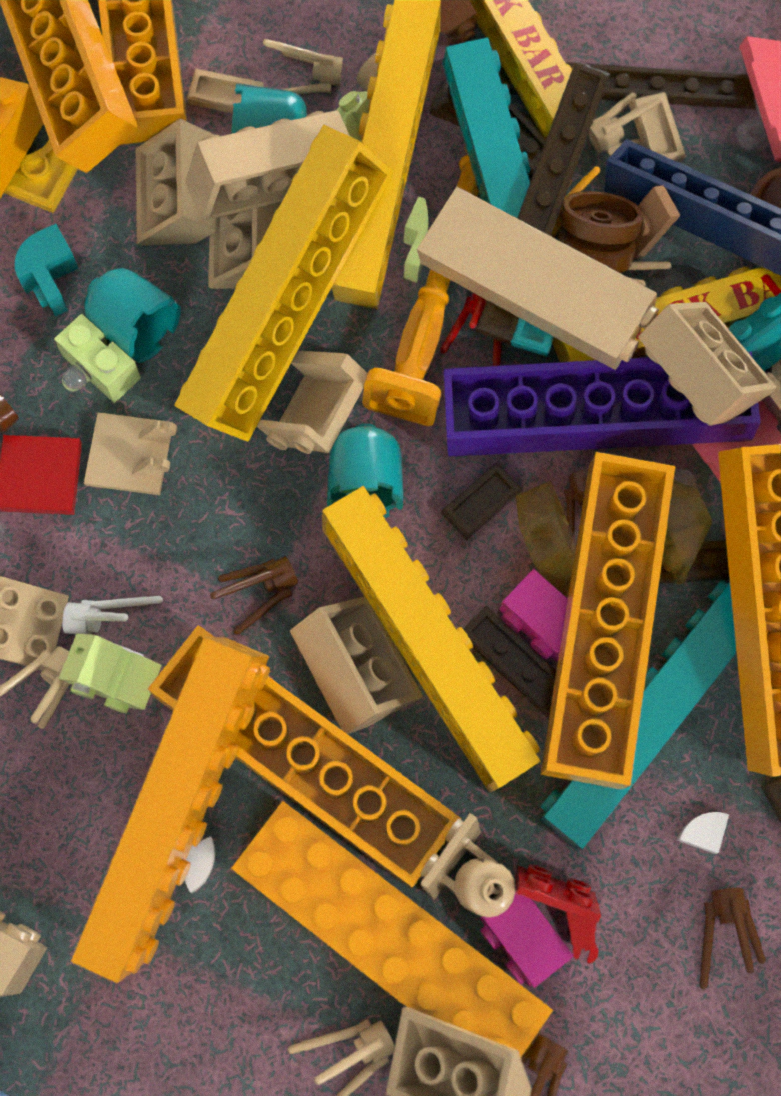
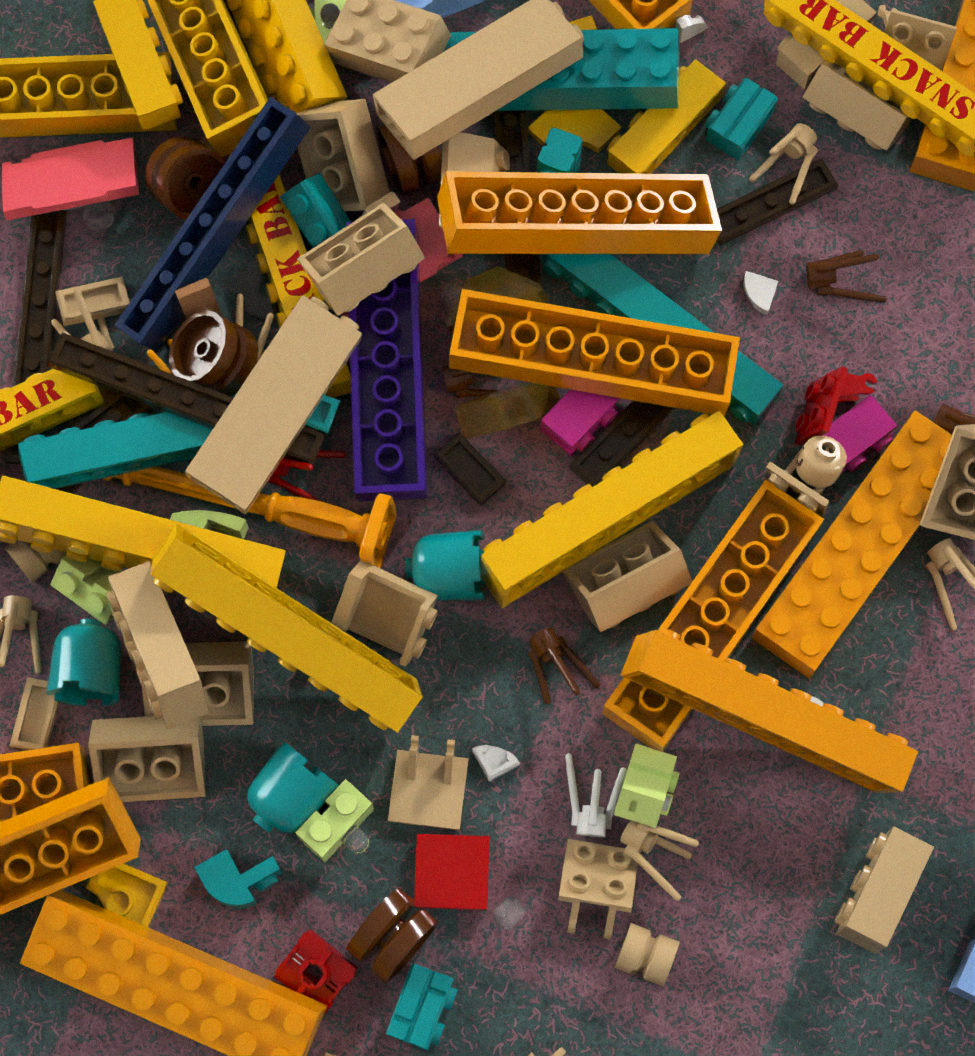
camera: 85 degrees left, 0 degrees up
(157, 521) = (494, 761): none -> white tile

